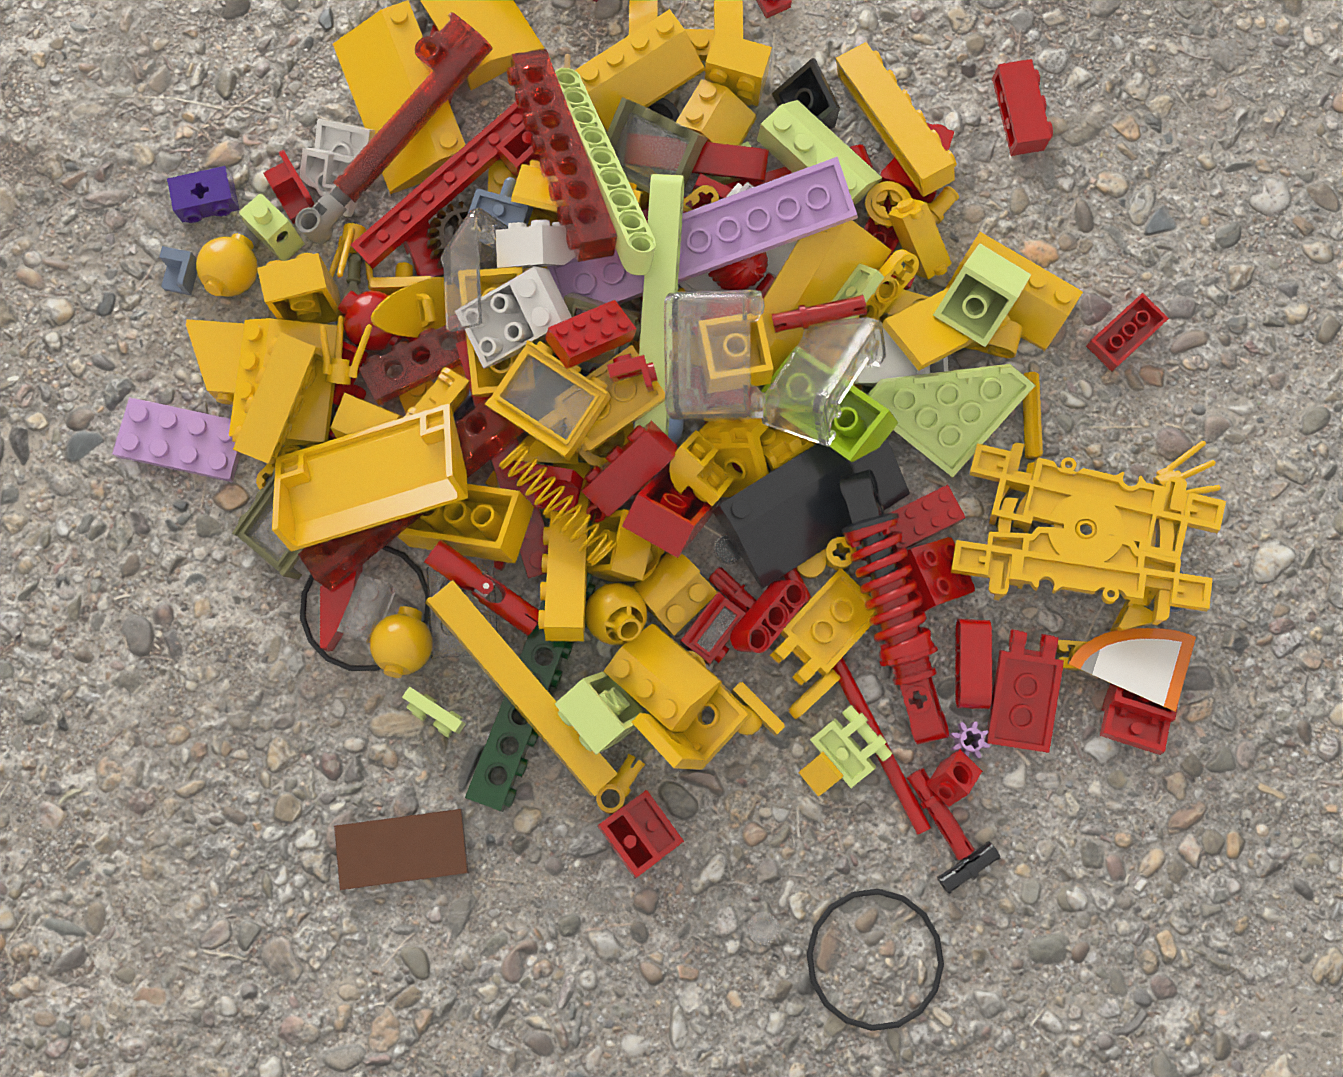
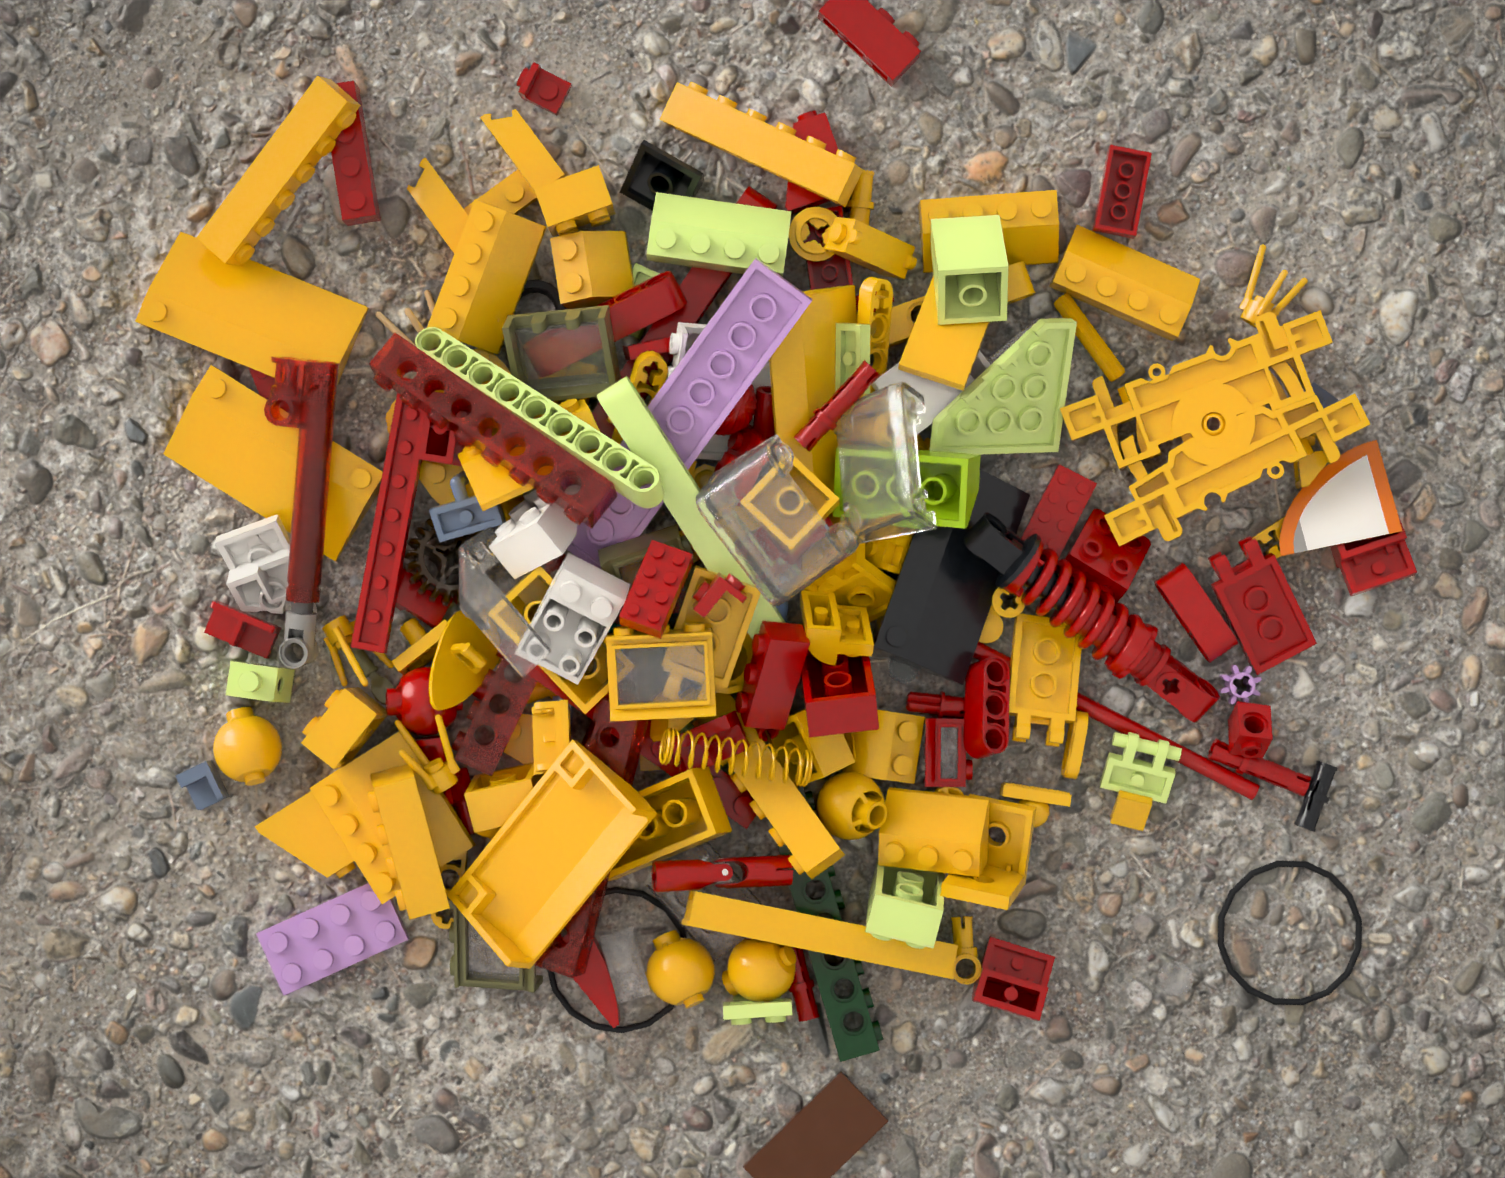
camera: 30 degrees left, 10 degrees up
(203, 194) = (149, 702): dark purple brick -> none
(459, 685) = (759, 970): none -> yellow brick
(482, 718) = (802, 989): none -> red pin
(1083, 396) = (1125, 283): none -> yellow slope

